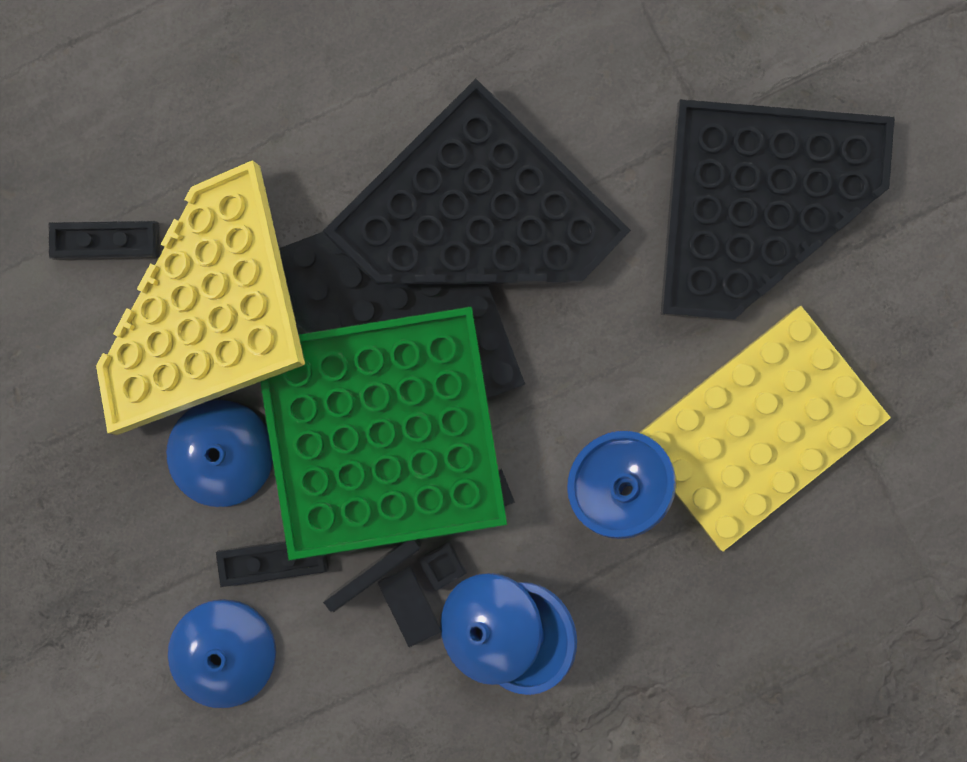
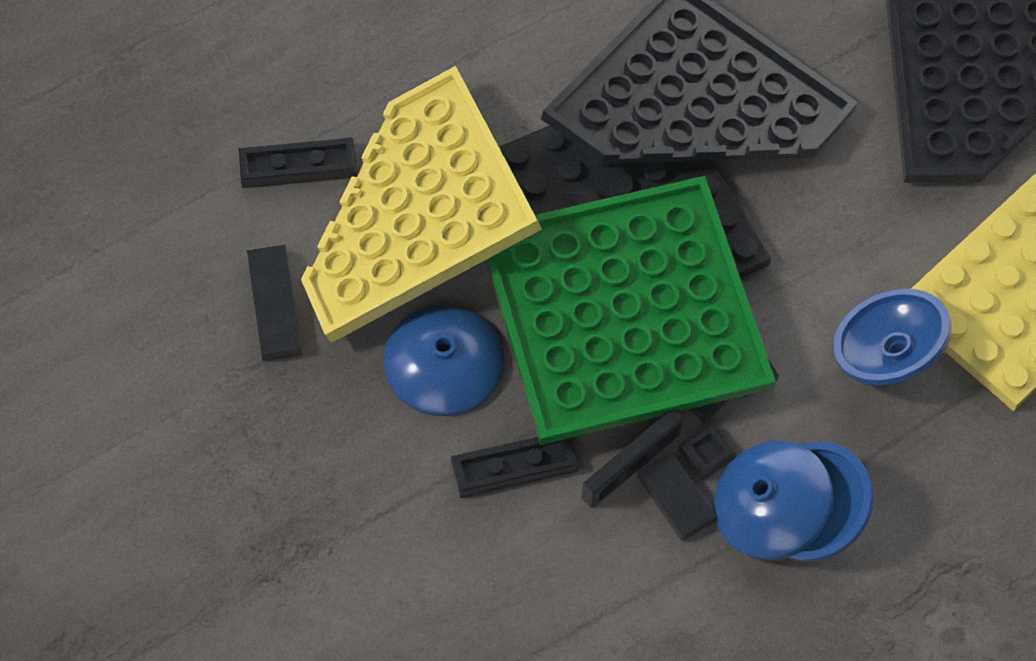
camera: 10 degrees left, 25 degrees down
(72, 383) = (274, 302): none -> black tile
(235, 635) = (467, 593): blue dish -> none

